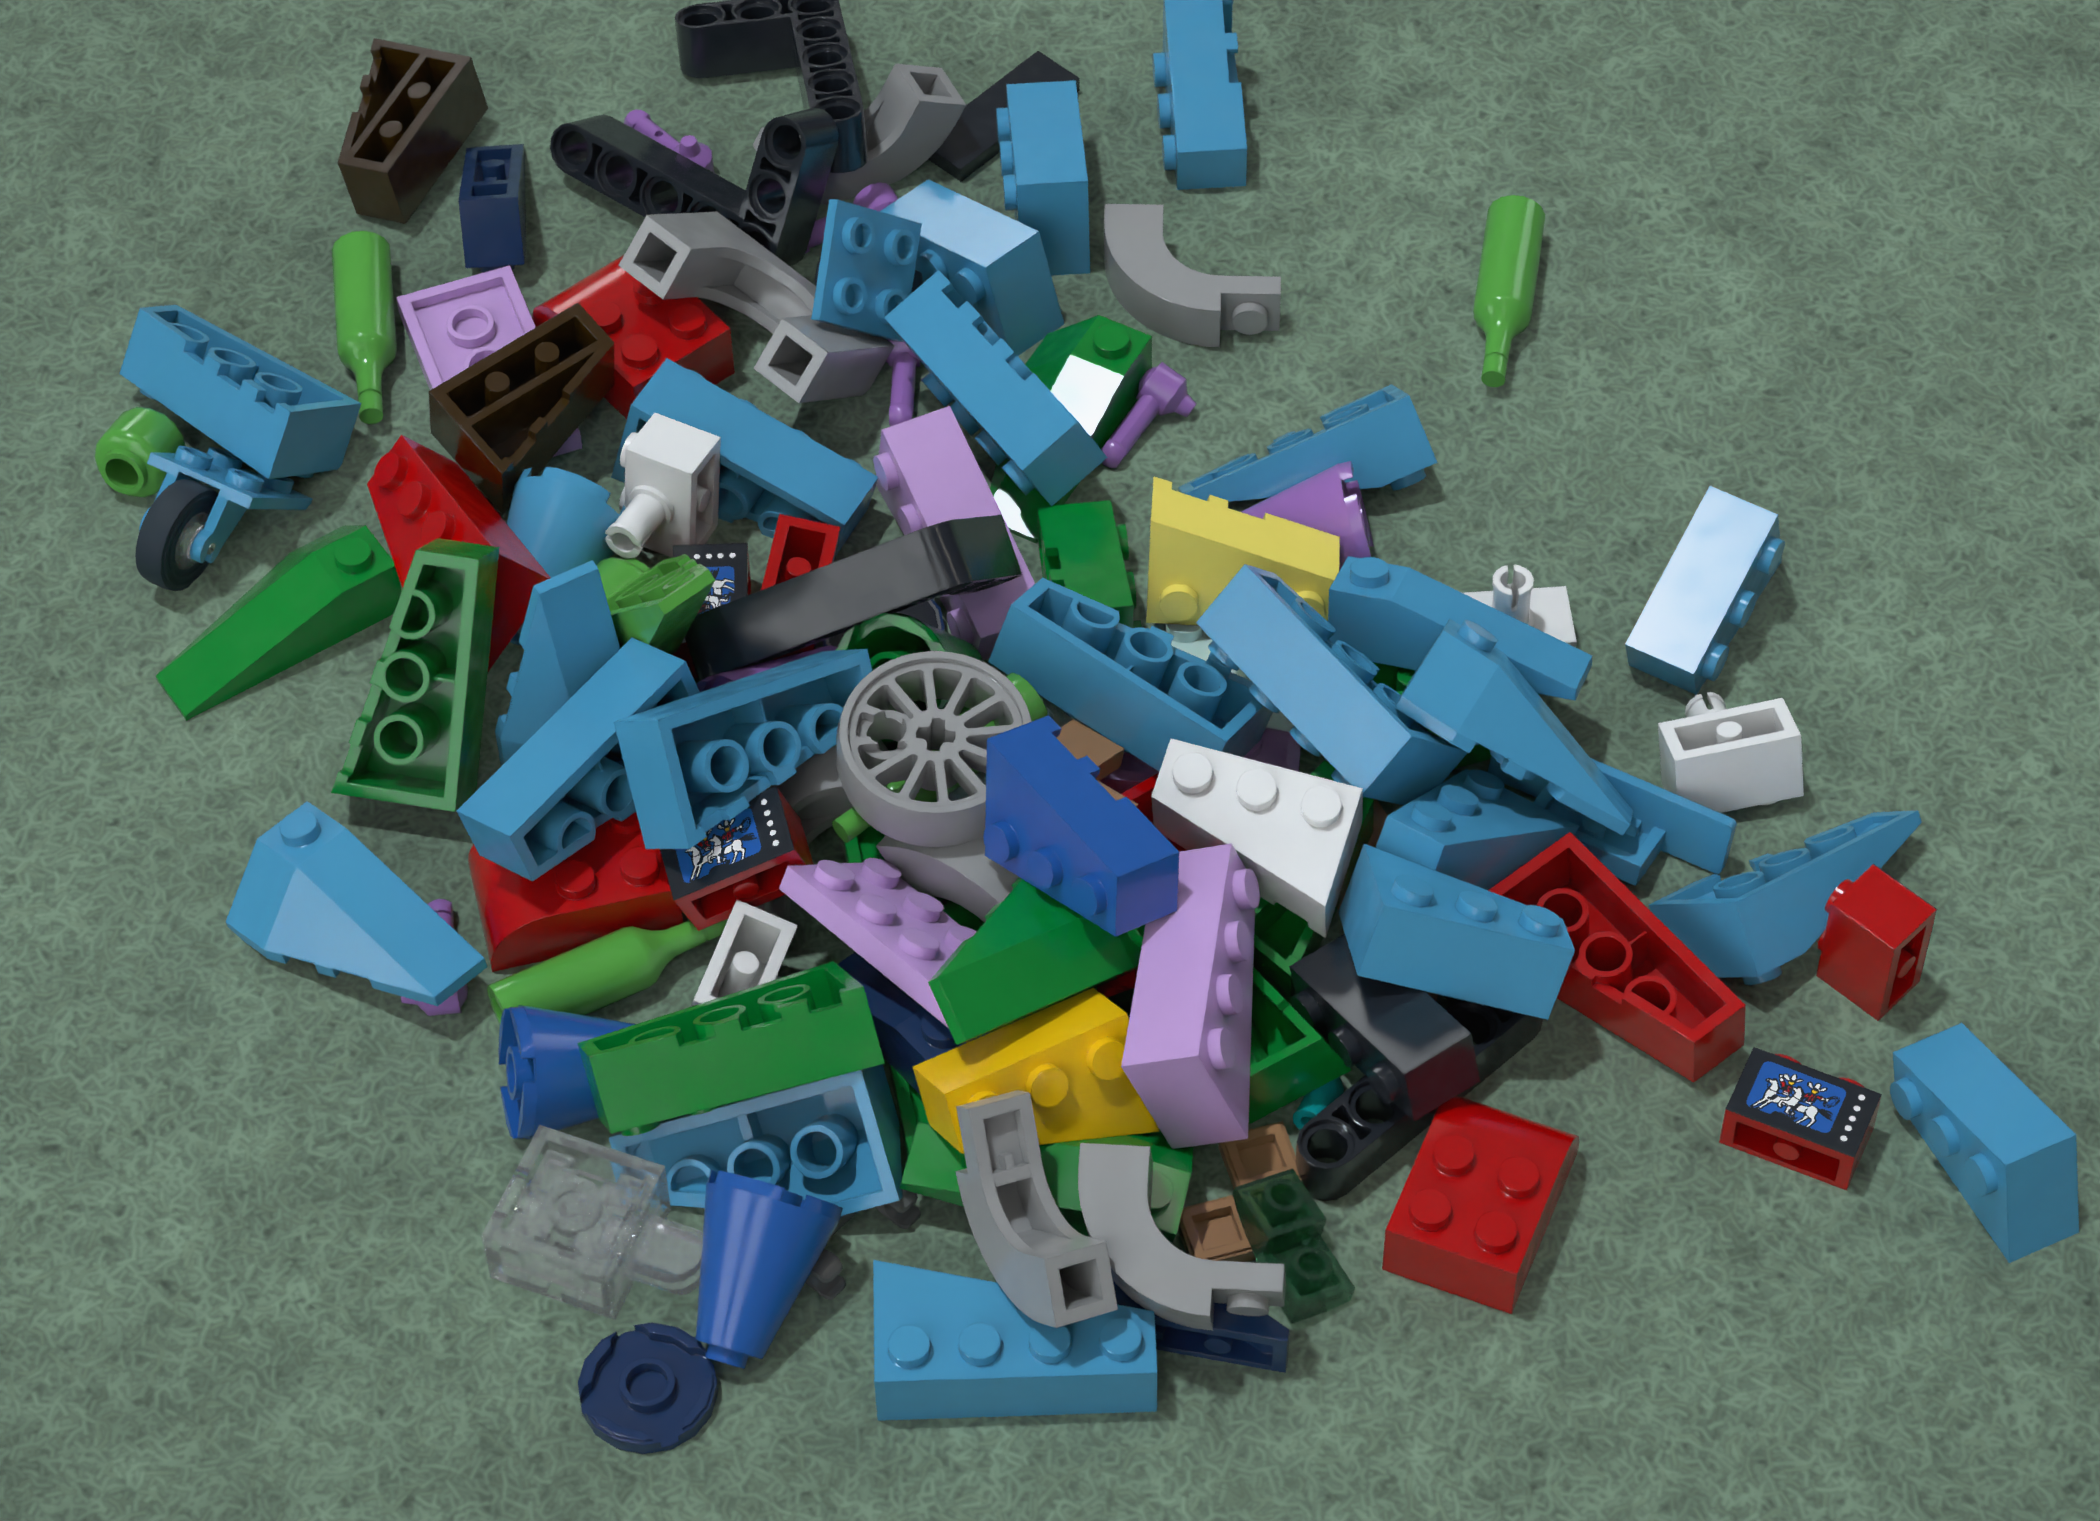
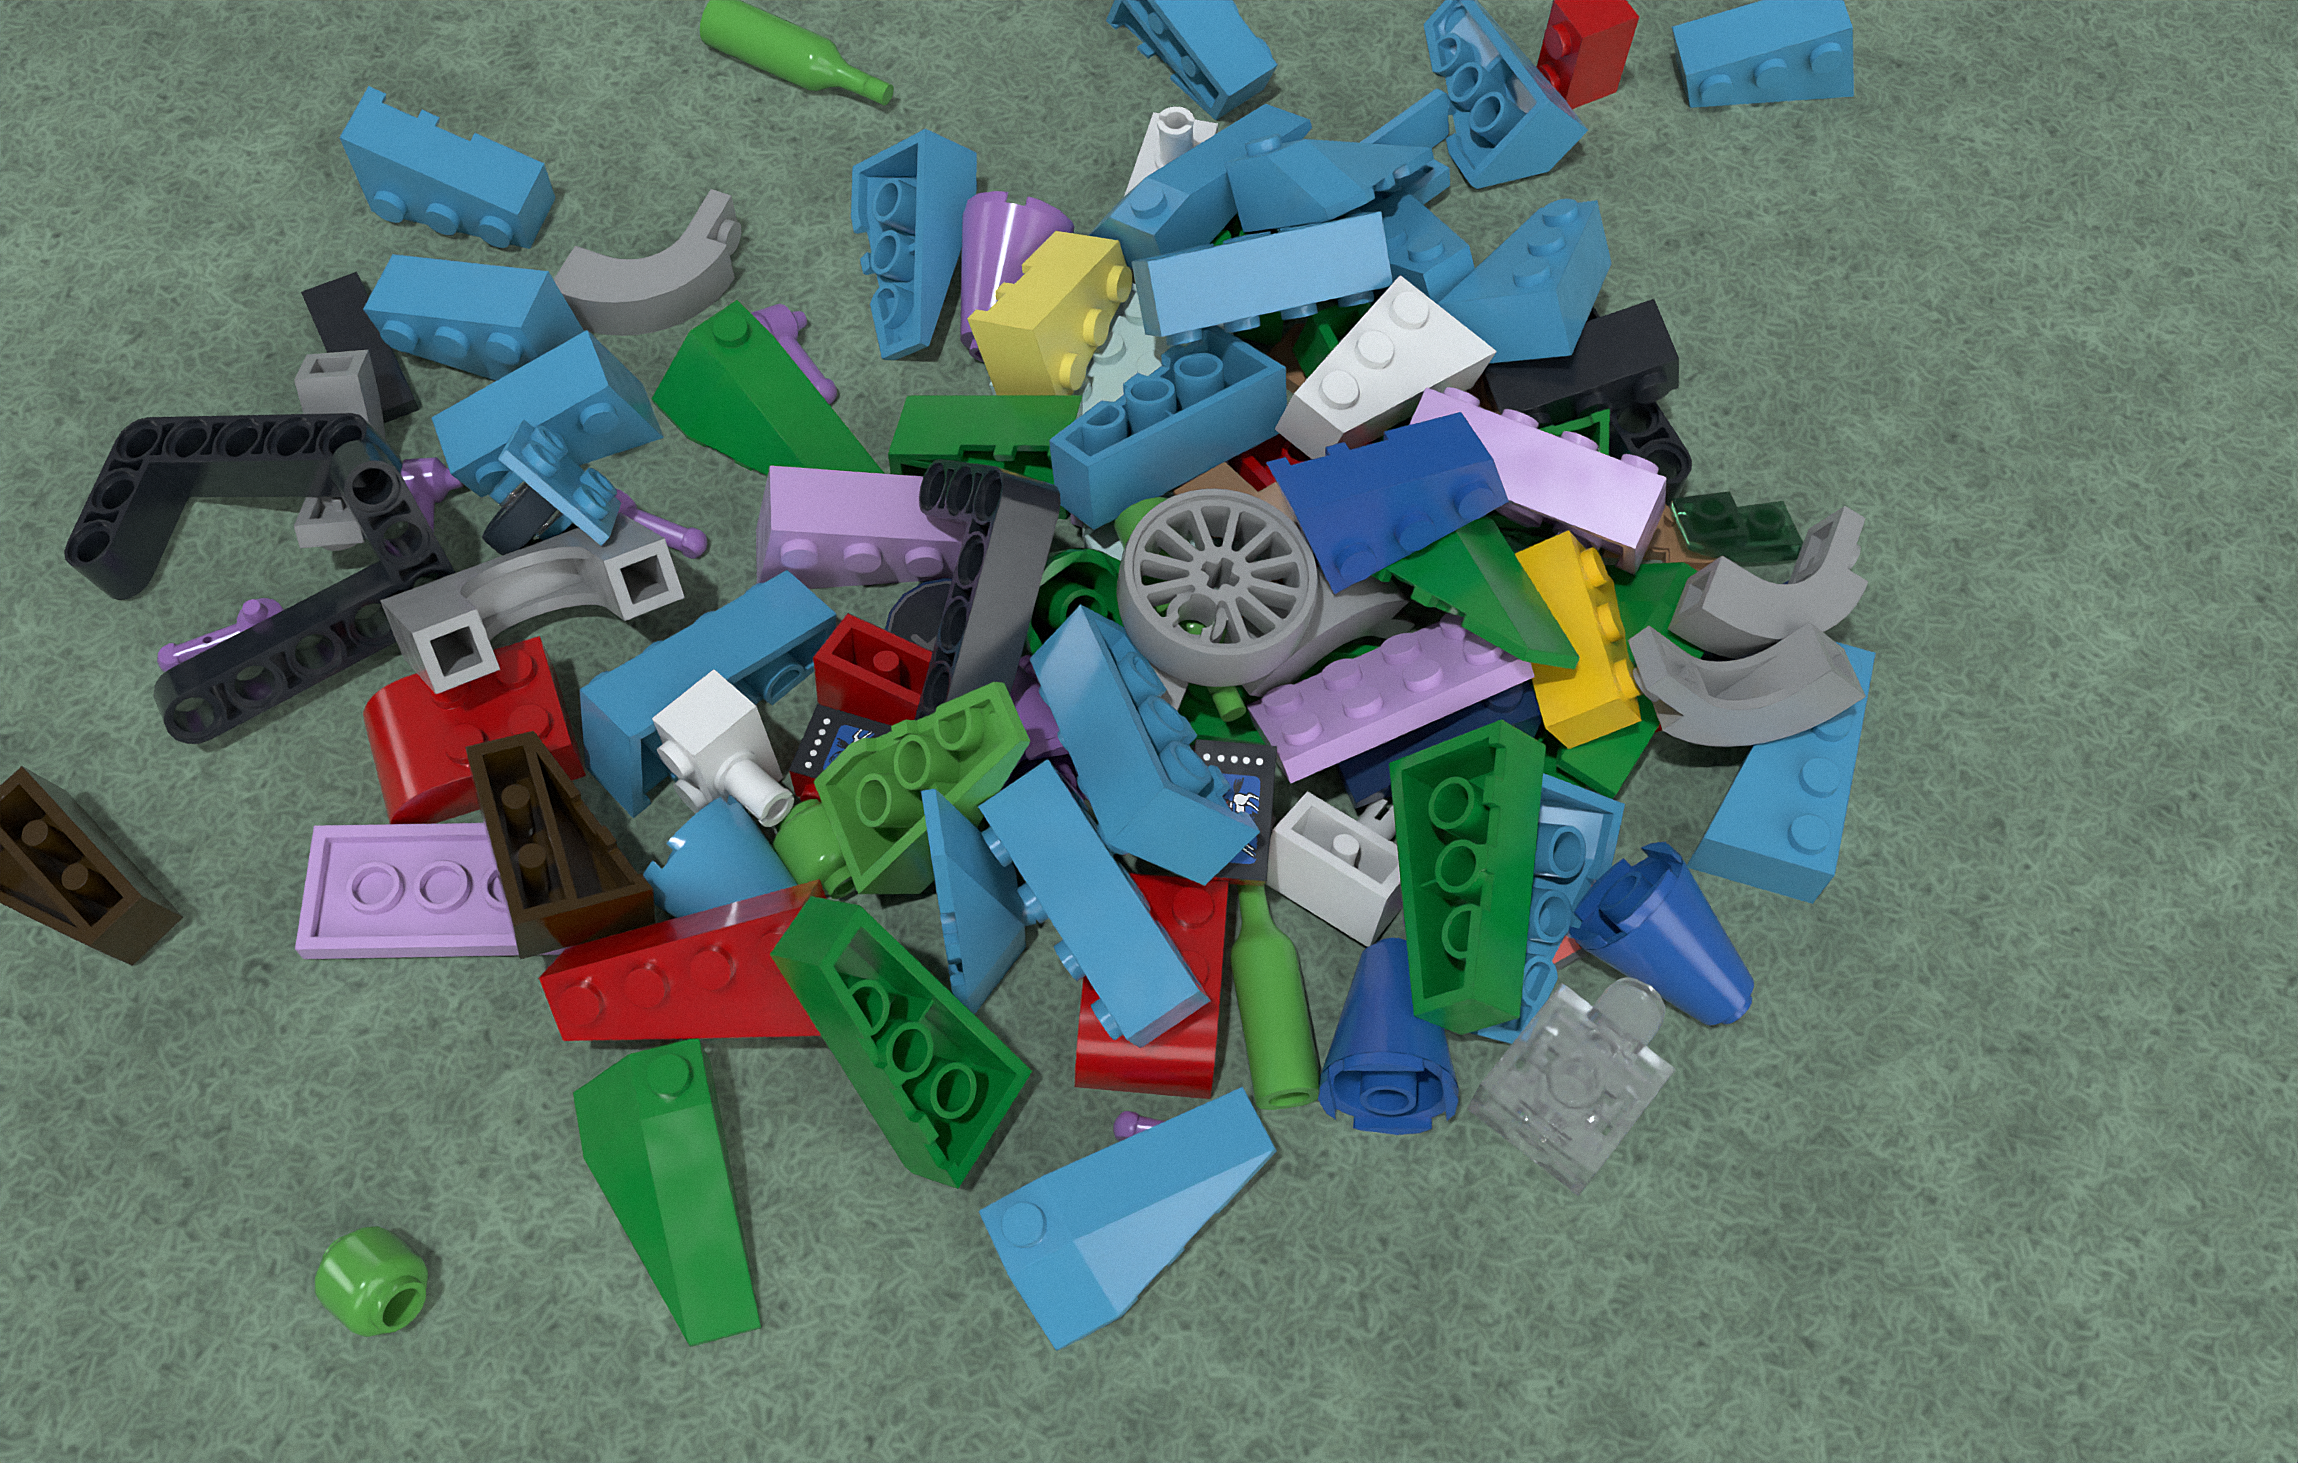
camera: 75 degrees left, 10 degrees up
(194, 521) = (478, 1190): plate -> none
(239, 394) = (352, 1151): dark azure wedge -> none
(365, 314) = (300, 990): bright green piece -> none
(493, 207) = (216, 817): dark blue slope -> none
(651, 1411) = (1723, 1100): dark blue tile -> none
(994, 392) = (736, 442): dark azure wedge -> none
(1478, 1202) = (1741, 384): red brick -> none
(1629, 965) = (1497, 202): red wedge -> none
(1732, 754) = (1363, 75): white brick -> none
(1800, 1117) = (1710, 158): brick -> none

